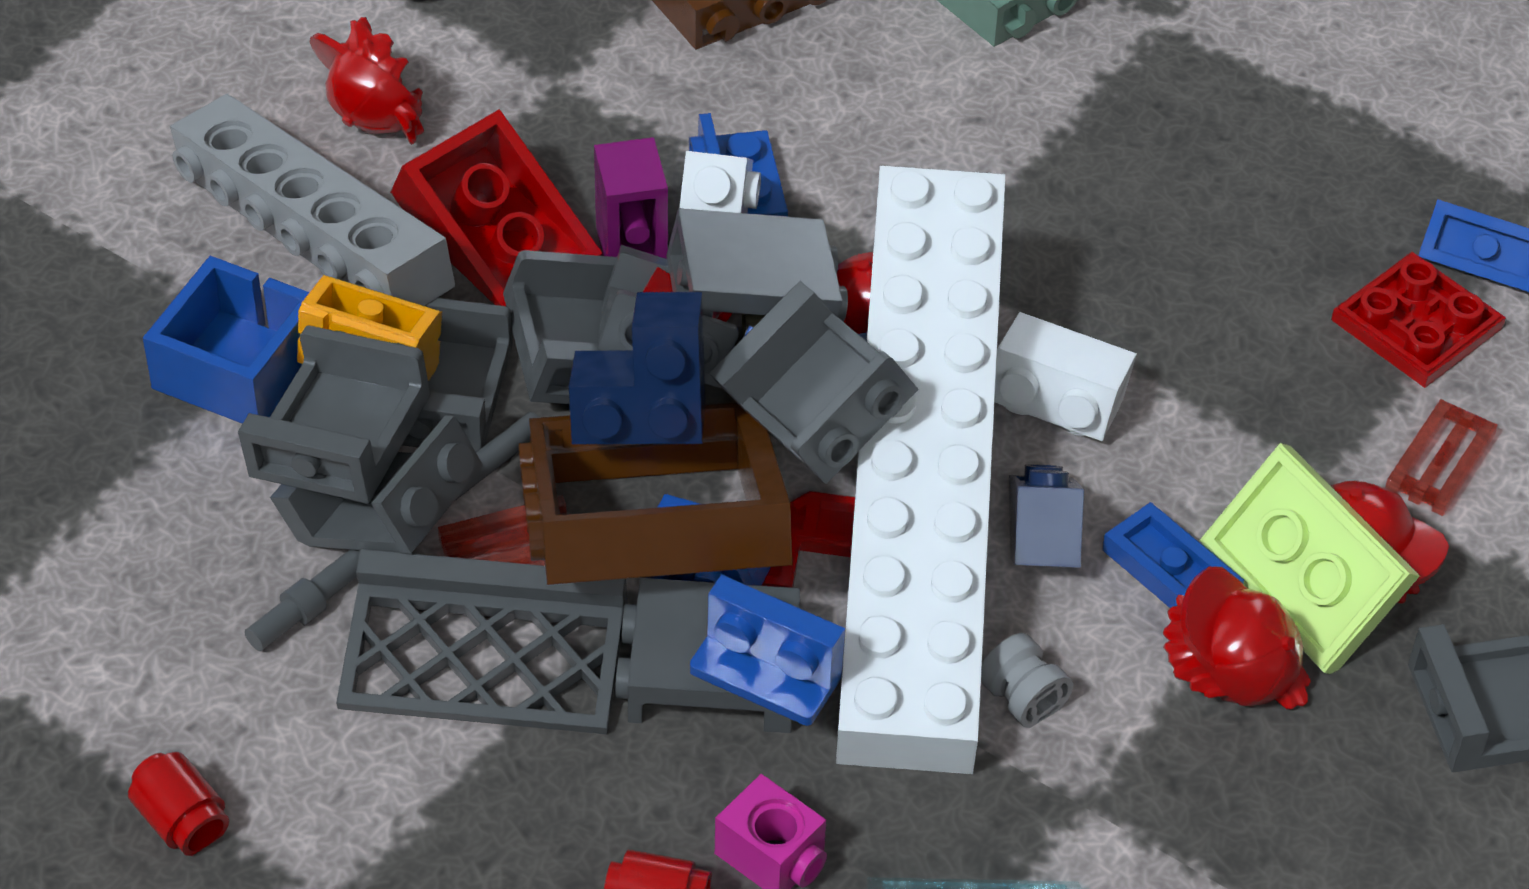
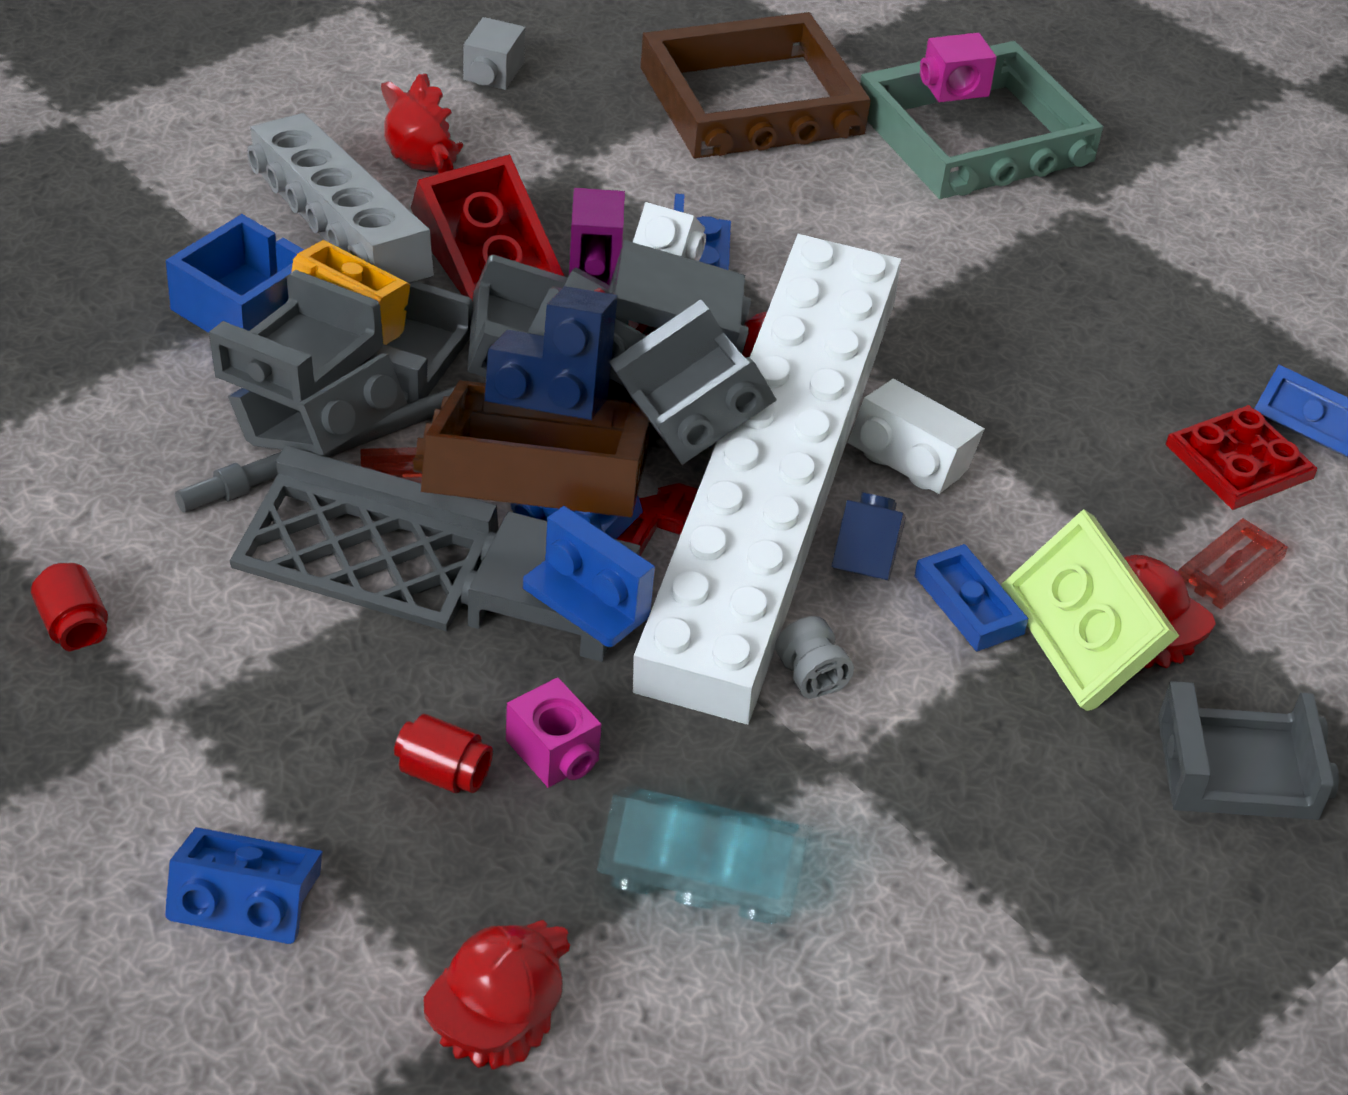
camera: 10 degrees right, 5 degrees down
(1235, 643) = (1004, 662): red hair -> none

